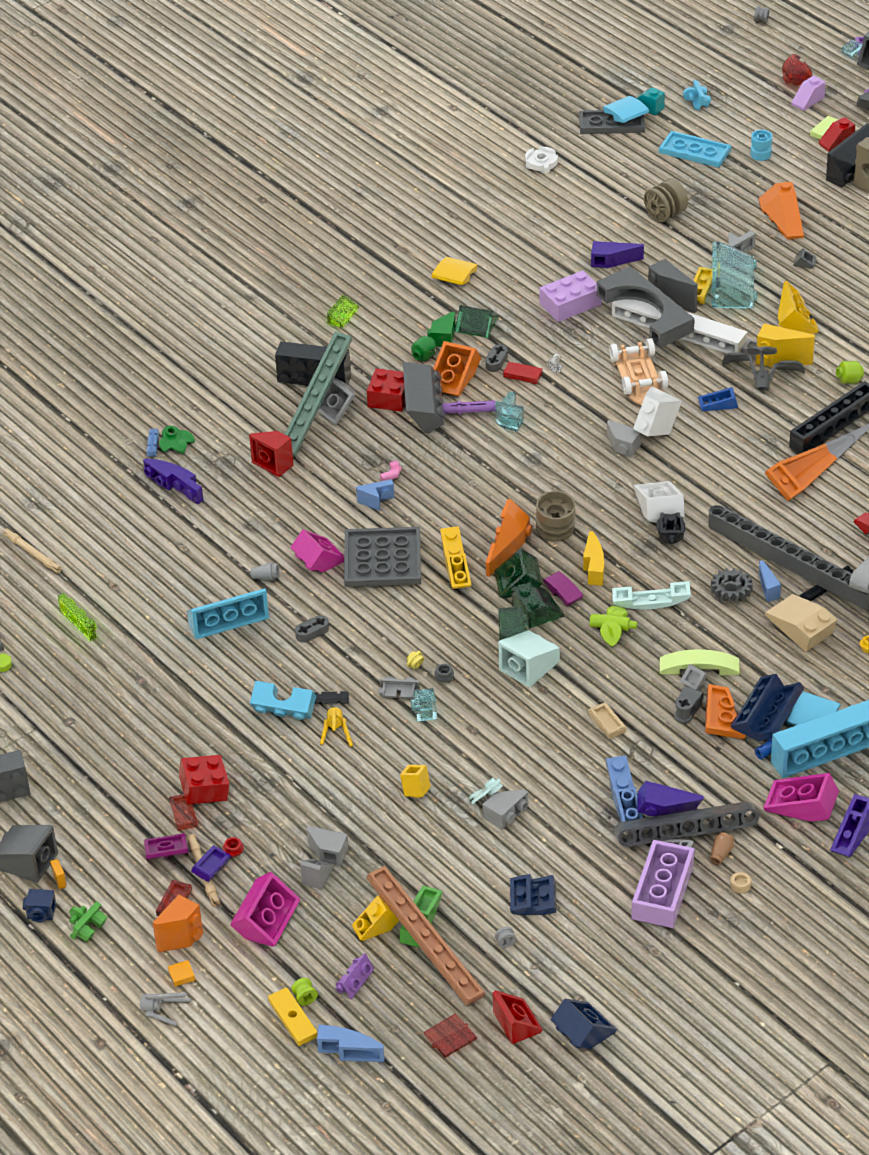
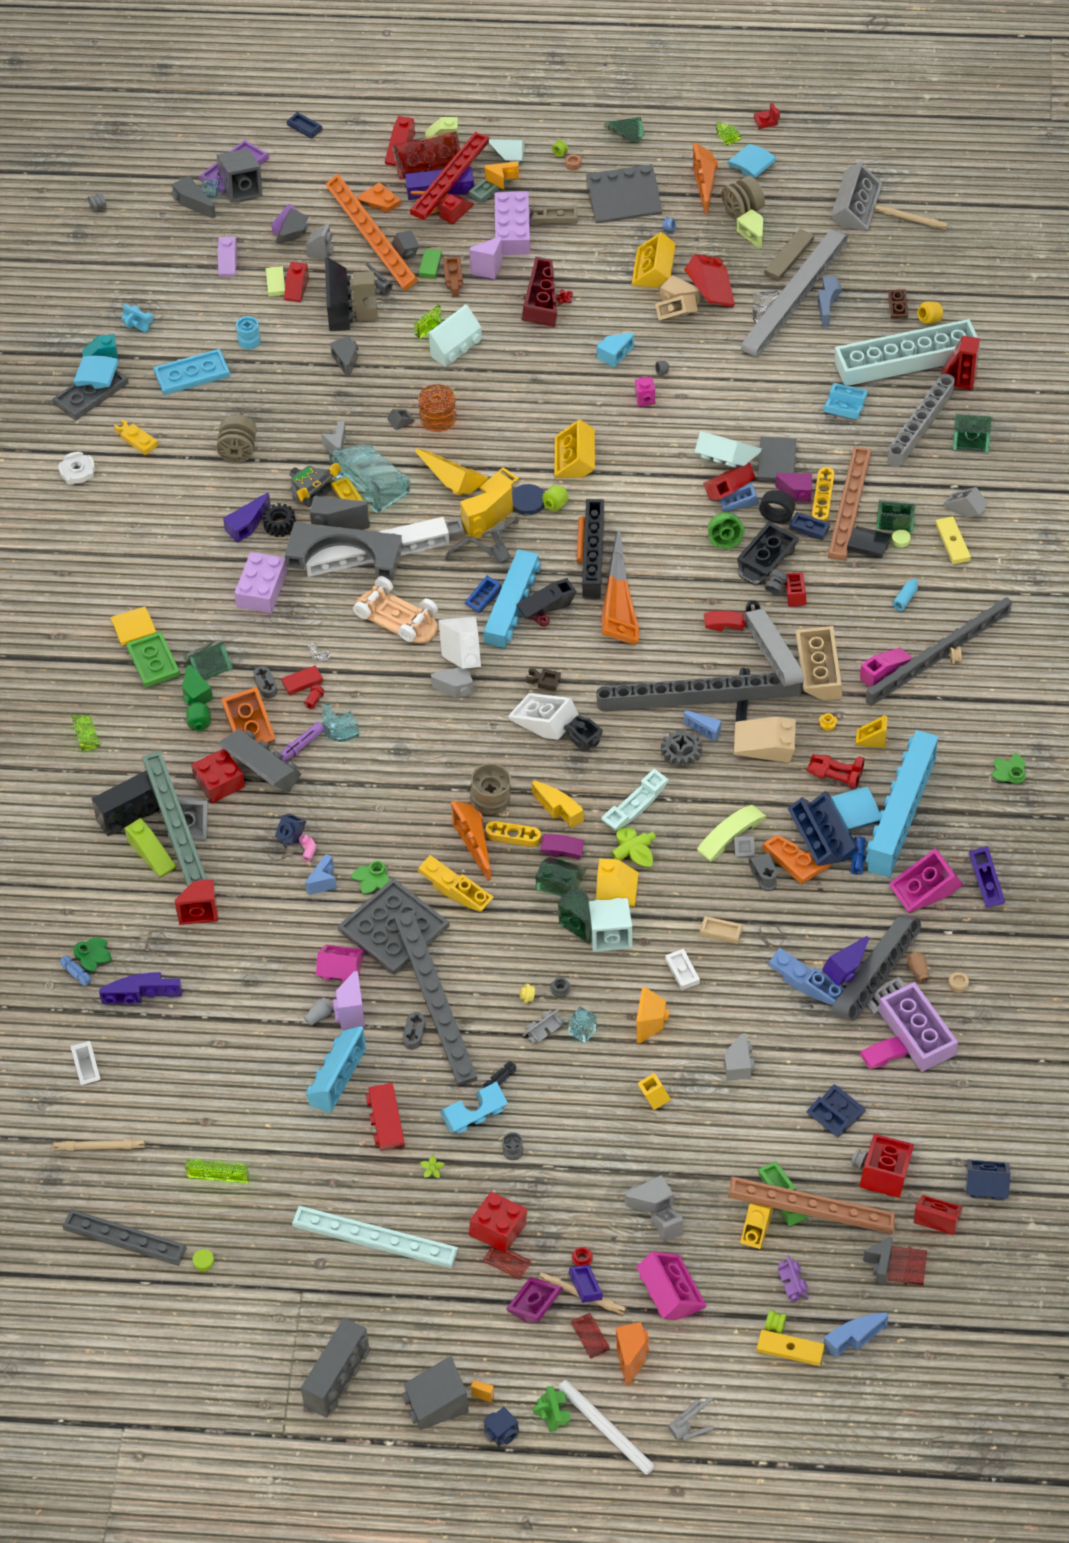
camera: 45 degrees left, 10 degrees up
(85, 495) = (85, 1062): none -> white slope
(106, 963) = (606, 1427): none -> white axle
(122, 732) = (375, 1237): none -> light aqua tile
(181, 973) = (669, 1386): light orange tile -> none
(212, 716) = (432, 1167): none -> lime plant
(219, 661) = (385, 1117): none -> red wedge
(278, 743) = (512, 1146): none -> dark grey wheel
(288, 576) = (348, 1004): none -> lavender slope
(289, 400) = (149, 847): none -> lime slope
(335, 720) = (529, 1091): yellow plant -> none
(348, 618) = (435, 998): none -> dark grey plate
(390, 449) = (290, 829): none -> dark blue brick
(410, 517) = (369, 878): none -> bright green plate
(435, 1010) = (880, 1256): none -> dark grey slope
(440, 297) = (153, 659): none -> bright green plate
(475, 730) = (651, 1015): none -> light orange slope
(491, 787) = (712, 1057): light aqua plate -> none
(517, 570) = (517, 862): clear green slope -> none
(518, 956) = (886, 1165): none -> red slope
(520, 385) = (316, 693): none -> red pin
(539, 551) = (508, 827): none -> yellow beam
(543, 723) = (682, 969): none -> white plate
(571, 635) = (616, 881): none -> yellow slope
(605, 165) = (136, 437): none -> yellow plate
(613, 881) = (882, 1052): none -> dark pink slope
(638, 263) = (279, 512): none -> black tyre
(686, 257) = (312, 482): none -> torso
(691, 479) = (546, 679): none -> dark brown plate
(733, 413) = (514, 590): none -> medium azure brick
(739, 438) = (543, 620): none -> dark red arm
(755, 427) = (550, 598): none -> black slope
(782, 208) = (328, 379): orange wedge -> none
(795, 71) = (193, 241): clear red cylinder -> none
(814, 197) = (345, 354): none -> dark grey slope
(825, 340) = (498, 481): none -> yellow piece
(826, 668) = (822, 766): none -> red piece
(827, 361) = (527, 499): none -> dark blue tile
(831, 45) = (192, 197): none -> dark grey slope
(834, 264) = (437, 407): none -> clear orange wheel

